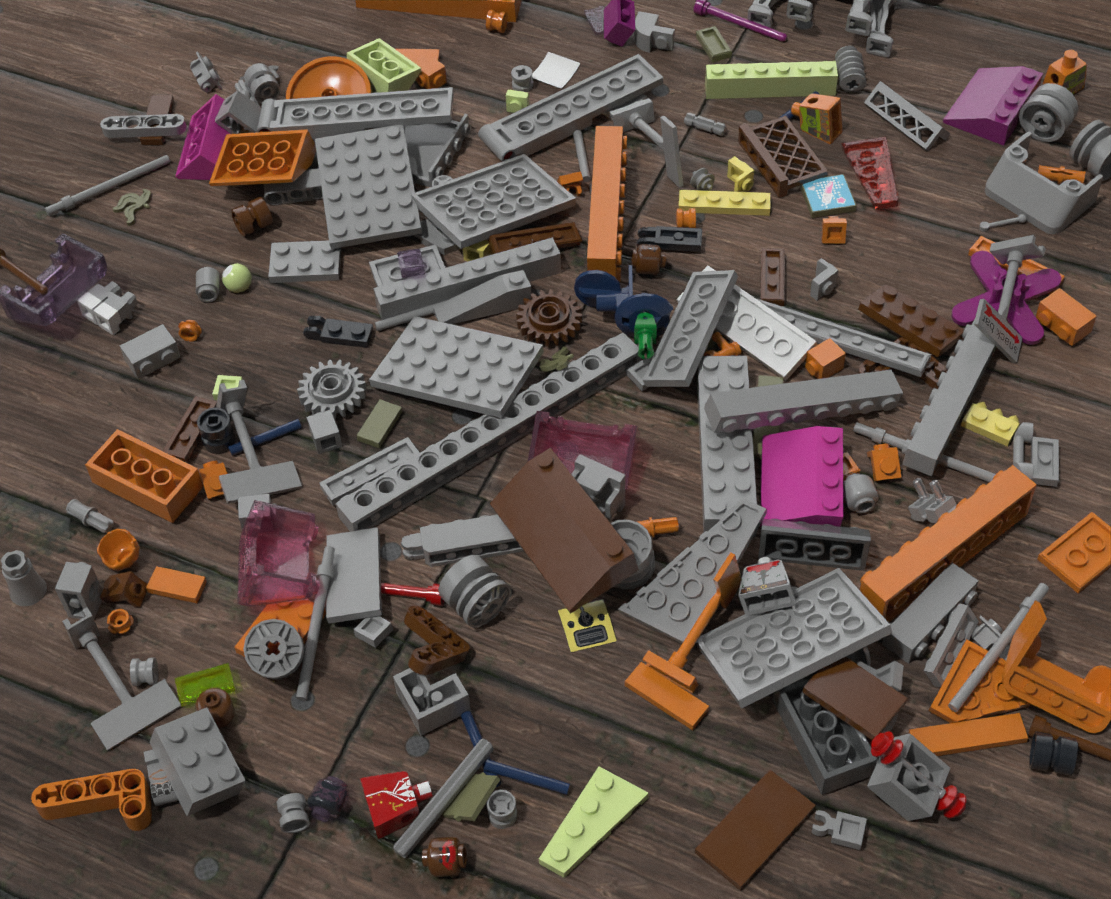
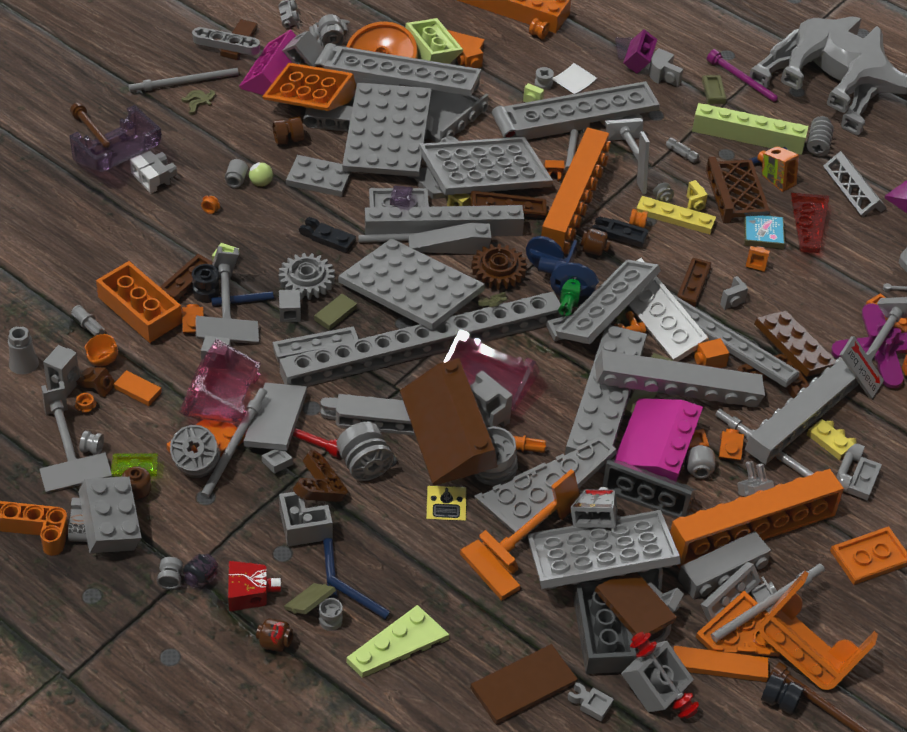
camera: 10 degrees right, 5 degrees down
(150, 351) = (174, 212): light grey brick -> none
(443, 798) = (288, 594): light grey axle -> none

